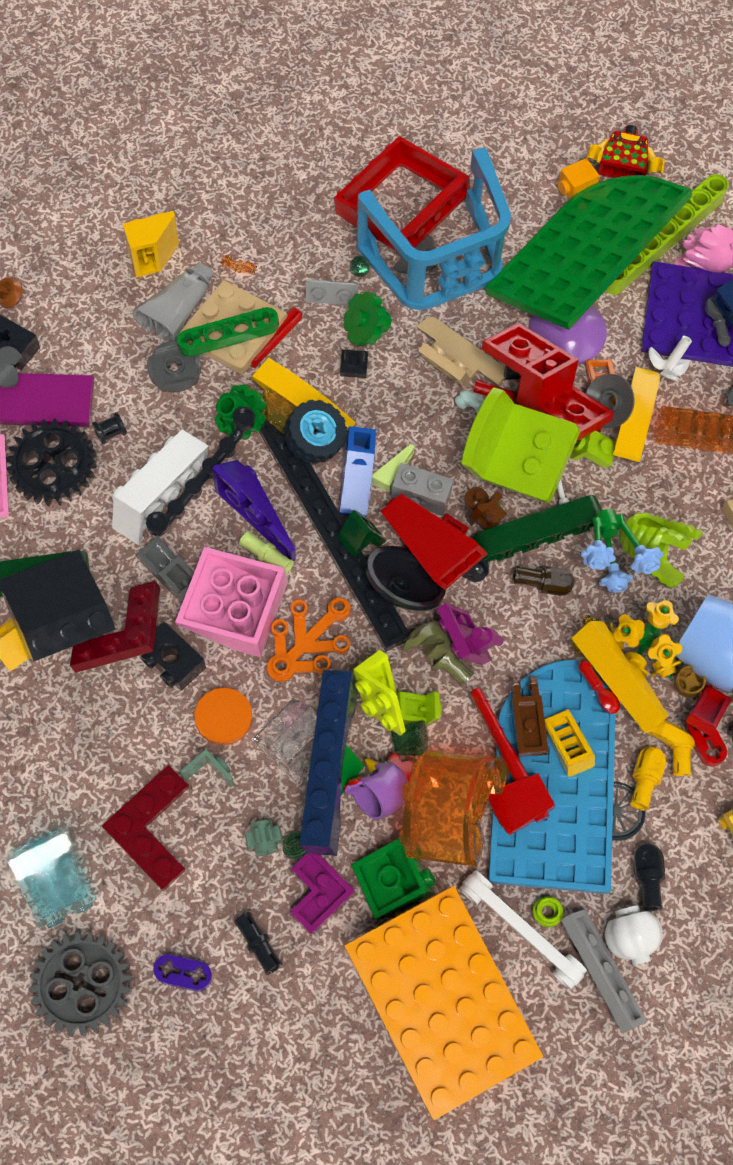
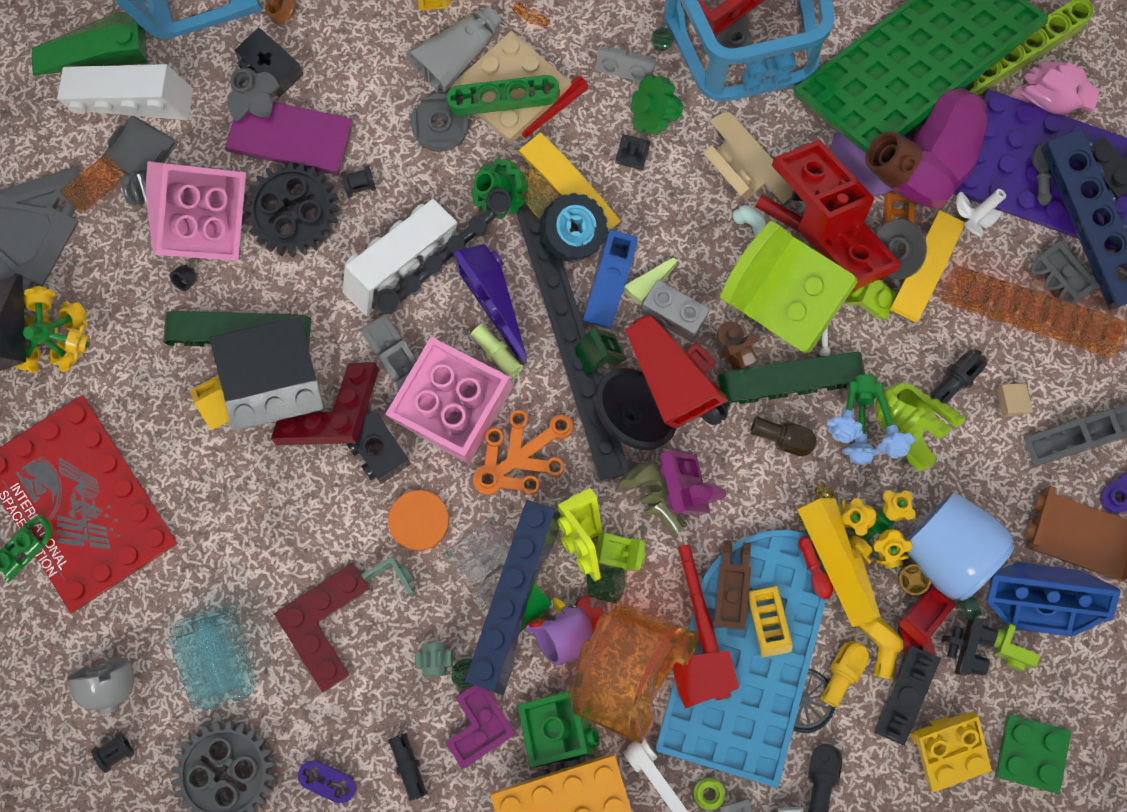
camera: 15 degrees right, 10 degrees up
(624, 321) = (939, 155): none -> magenta piece
(689, 499) = (960, 375): none -> black arm
(708, 785) = (907, 695): none -> black plate

